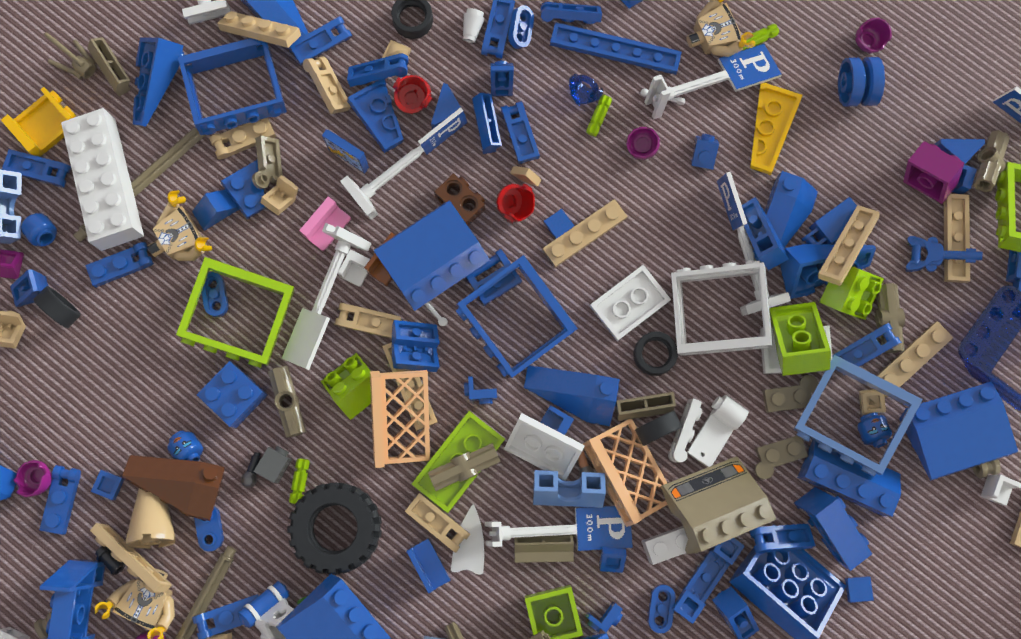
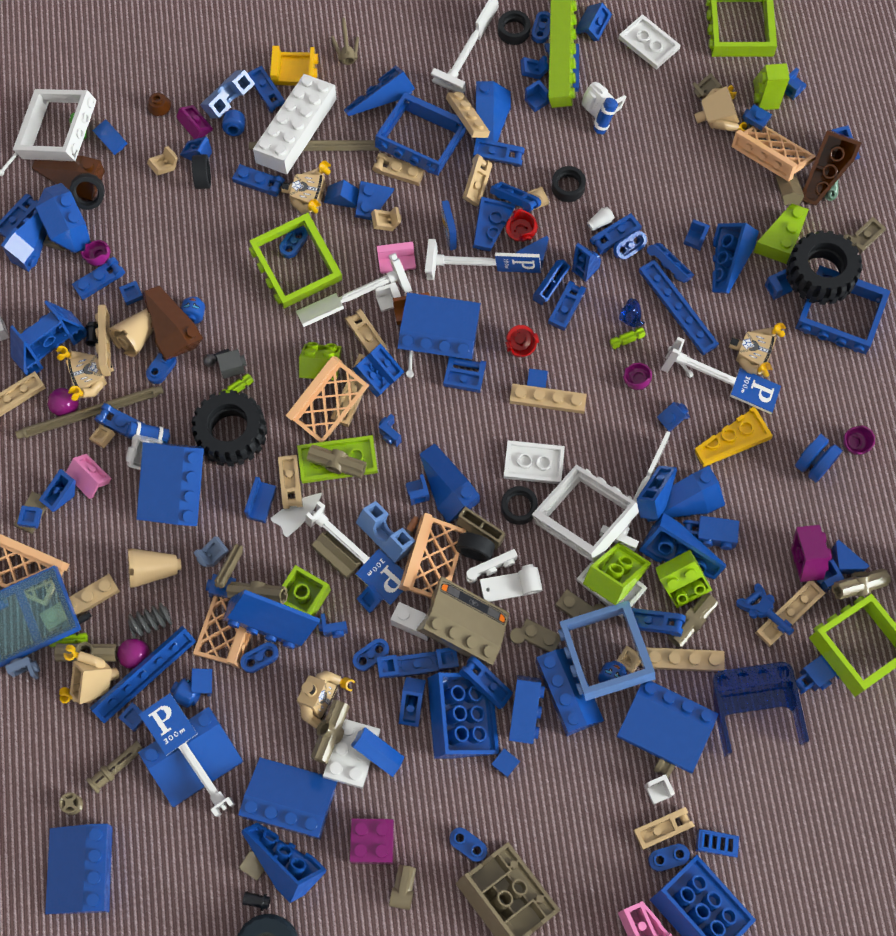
camera: 50 degrees right, 10 degrees down
(95, 47) = (364, 49): dark tan piece -> none
(232, 394) = (247, 304): blue brick -> none
(268, 162) = (399, 194): dark tan hinge -> none
(290, 416) = (269, 345): dark tan piece -> none
(463, 197) = (490, 312): reddish brown brick -> none
(526, 175) = (545, 333): tan tile -> none
(543, 446) = (395, 494): white plate -> none
(545, 295) = (423, 393): blue window -> none
(763, 34) = (782, 379): lime axle -> none
(848, 245) = (704, 543): tan plate -> none

